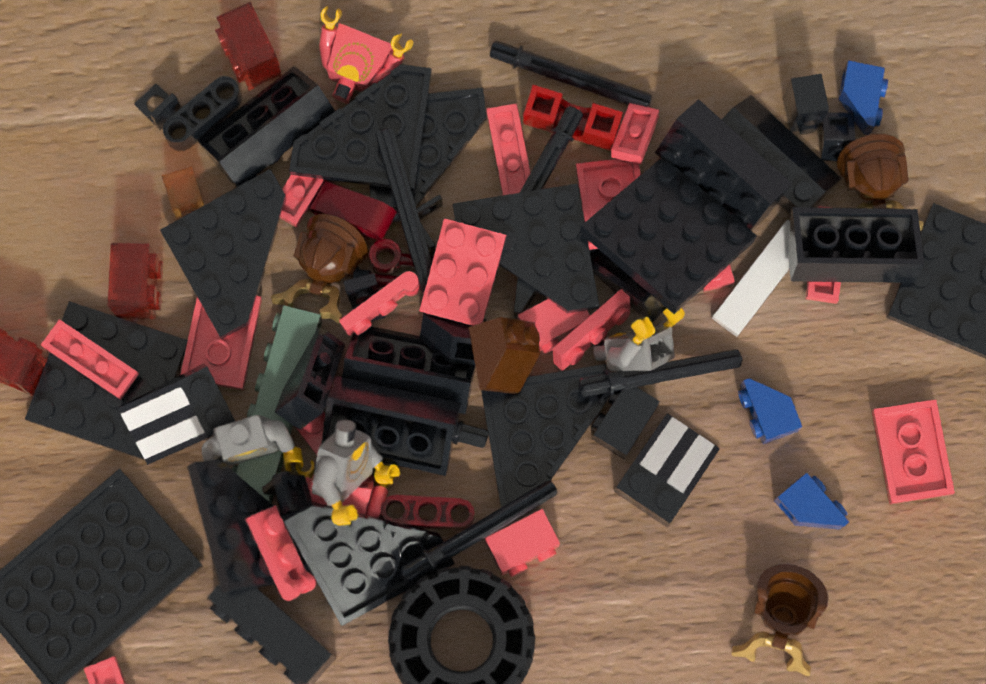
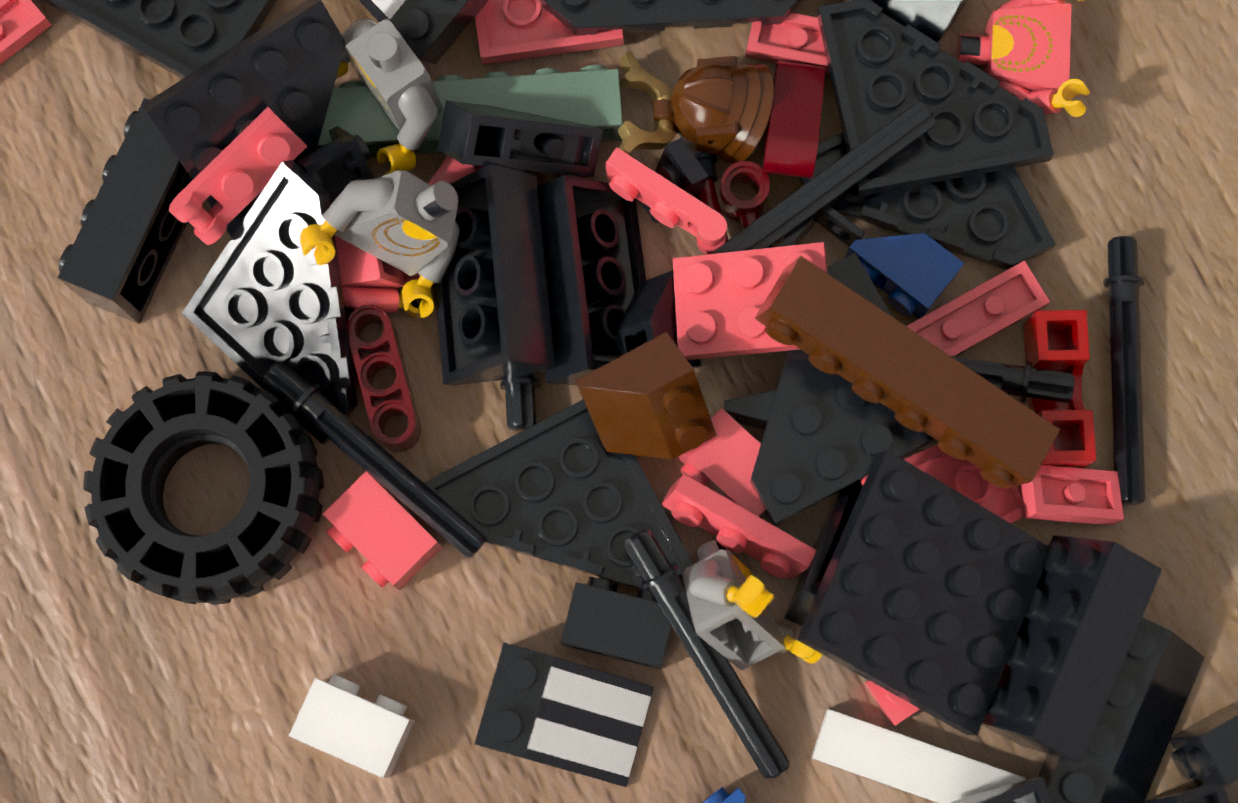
camera: 75 degrees right, 0 degrees up
(469, 176) = (908, 269): none -> blue slope
(540, 199) = (906, 375): none -> reddish brown brick
(634, 596) = (353, 726): none -> white brick

